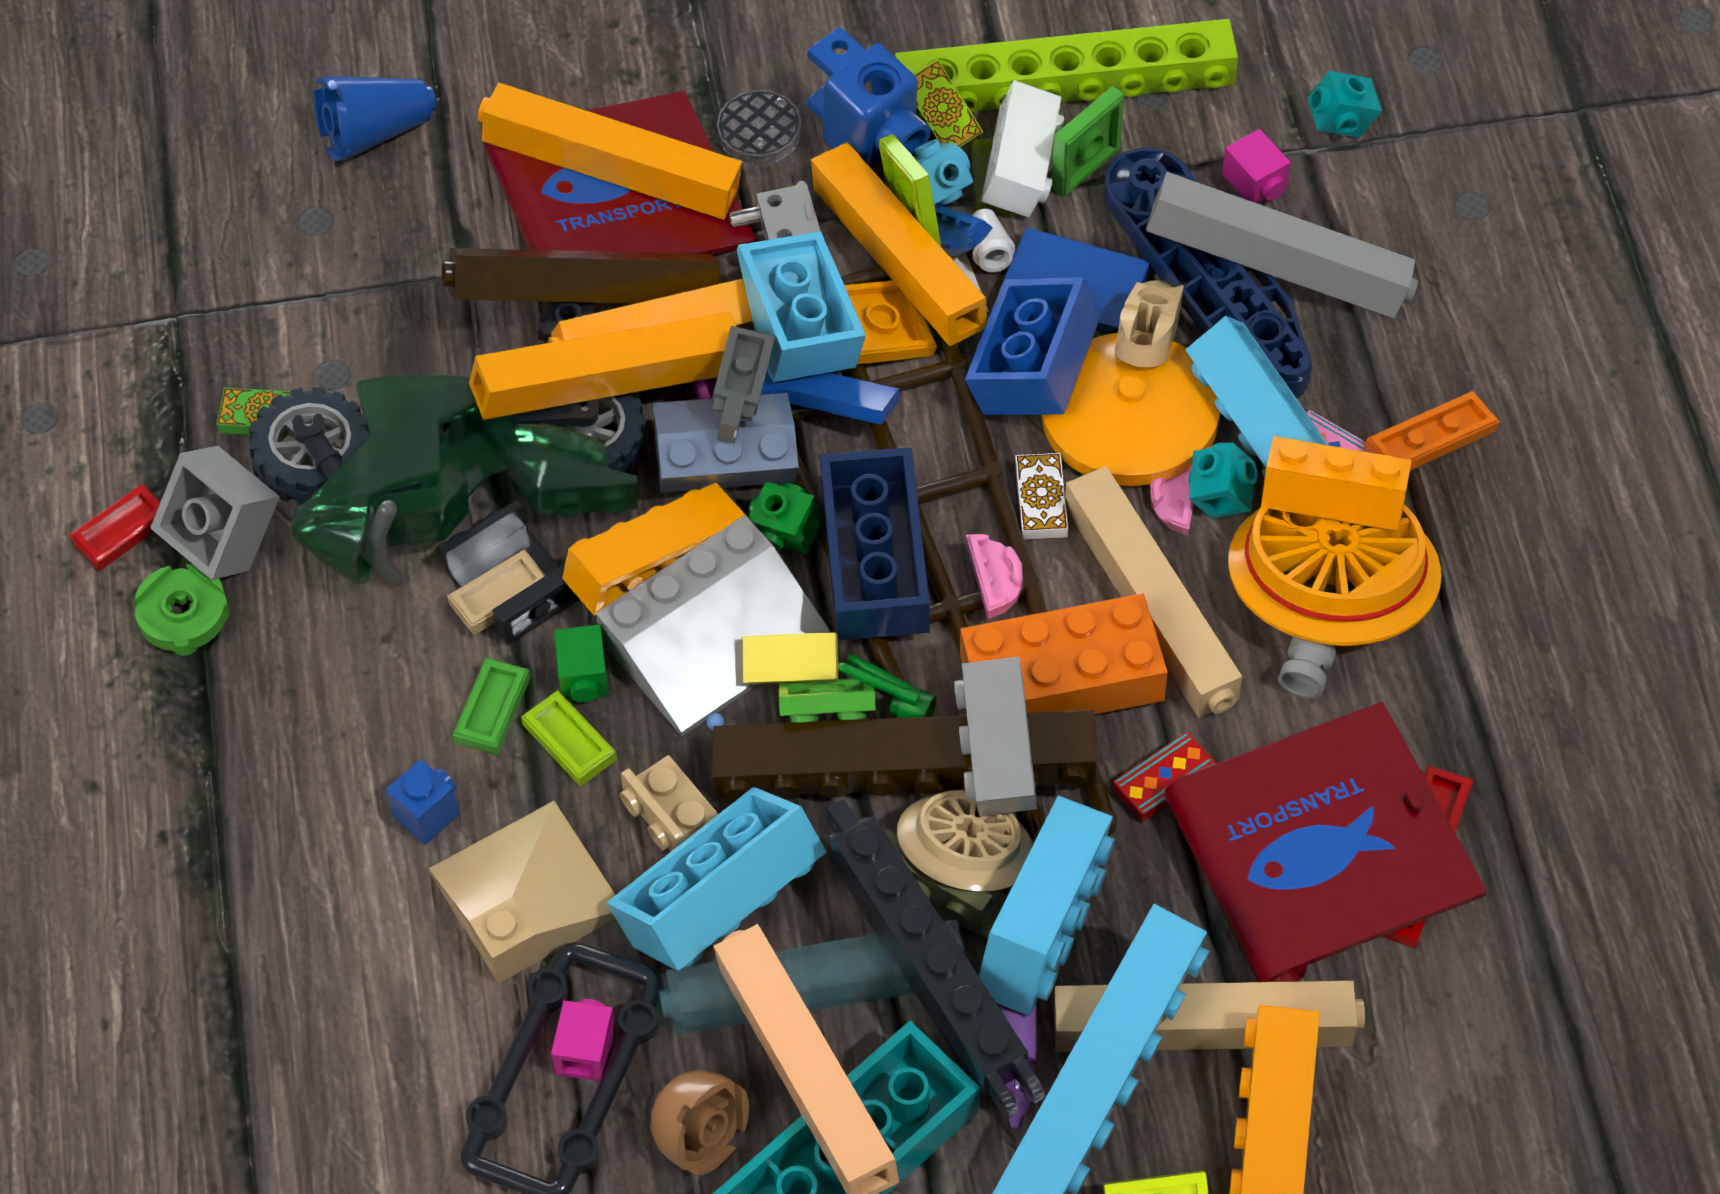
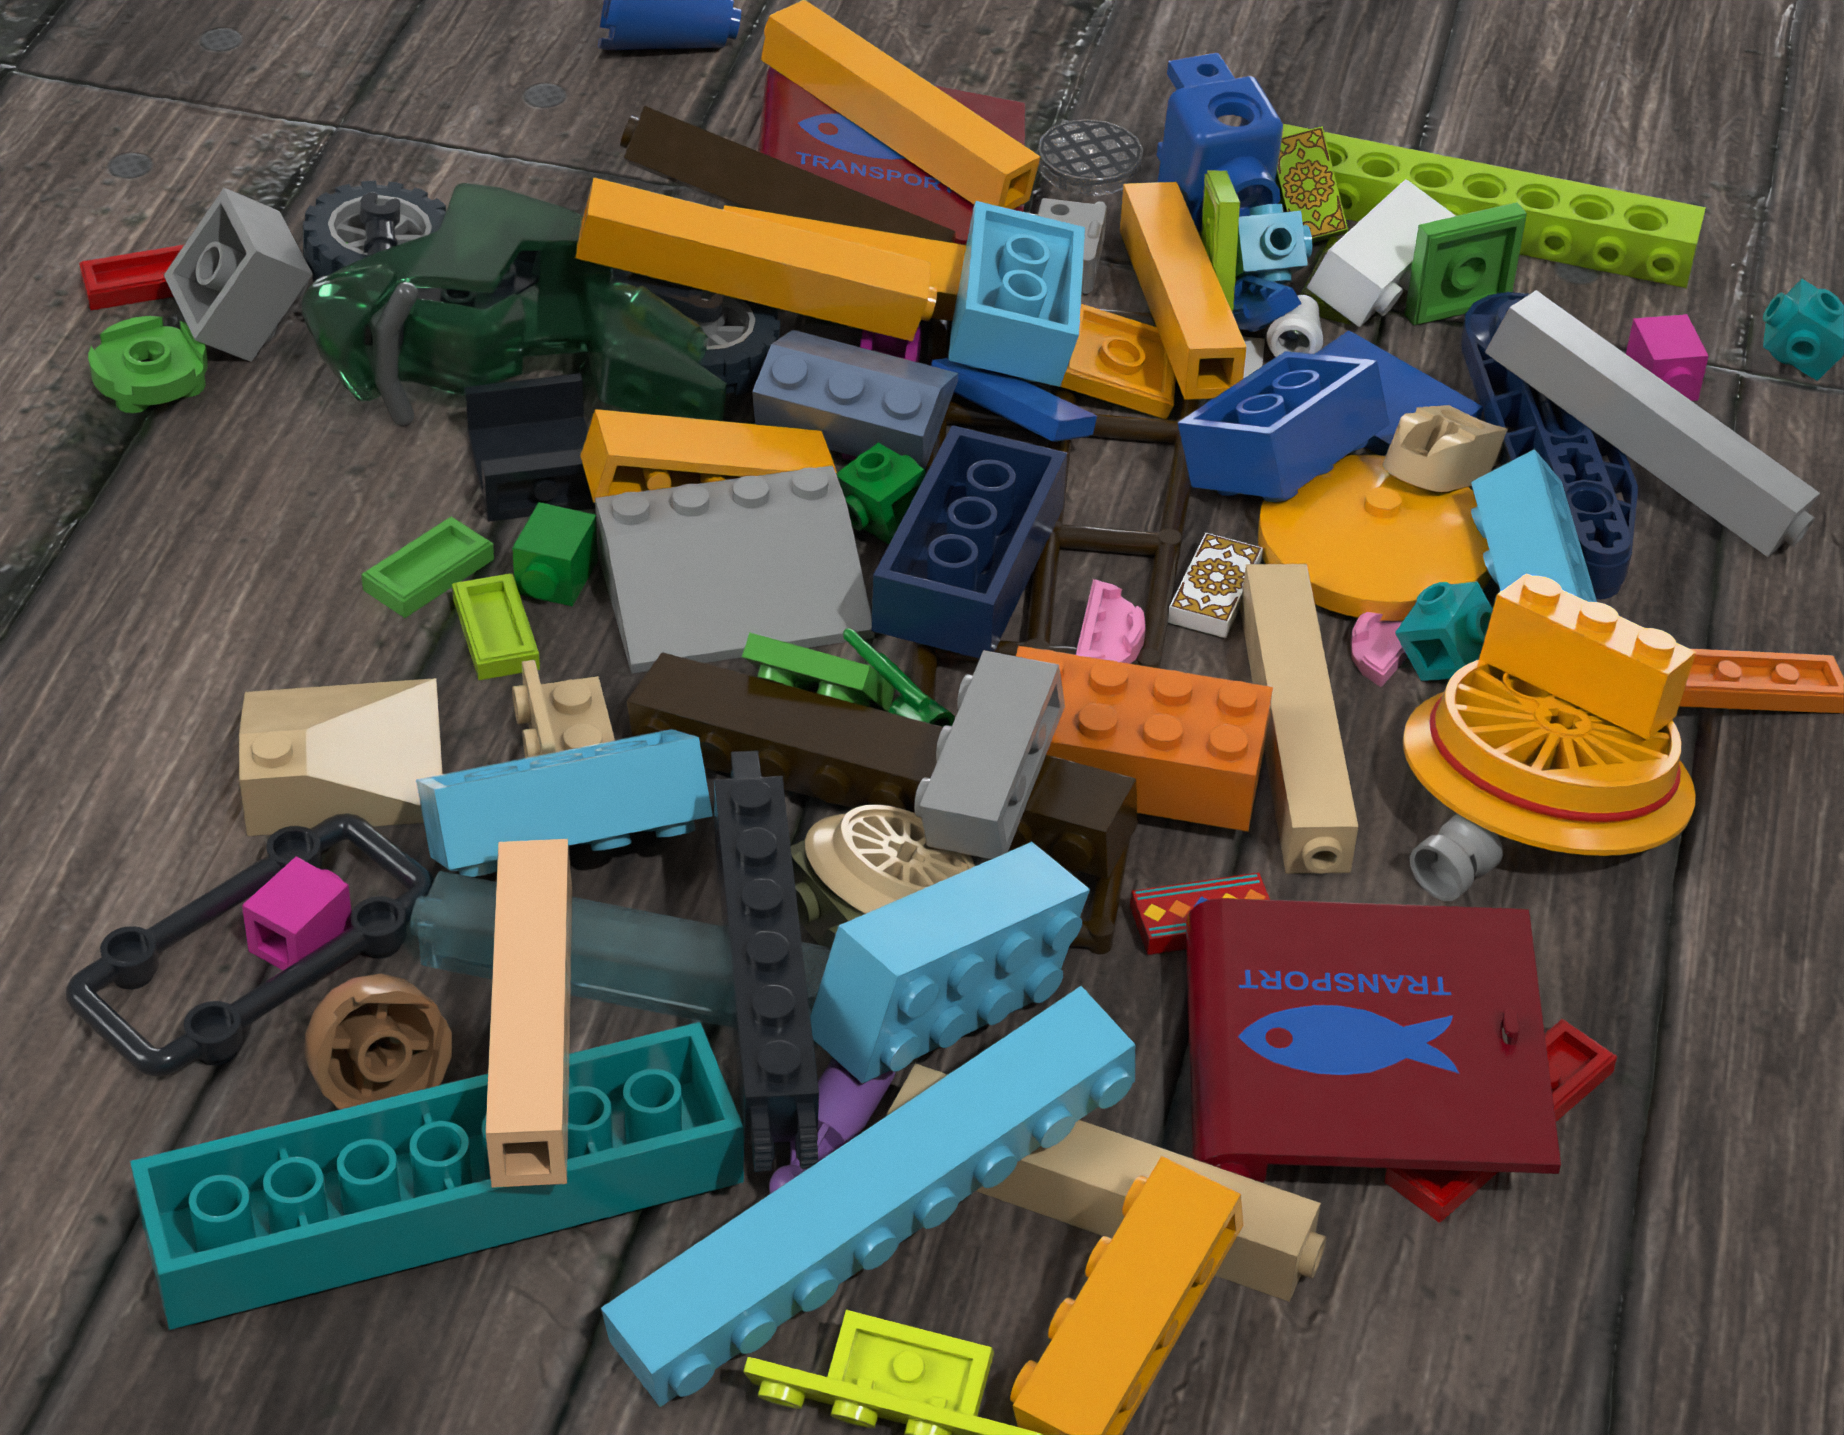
camera: 20 degrees right, 15 degrees down
(423, 800) = (280, 617): blue brick -> none
(478, 598) = (466, 455): tan tile -> none
(740, 379) = (898, 320): dark grey hinge -> none
(790, 658) = (801, 620): light yellow tile -> none

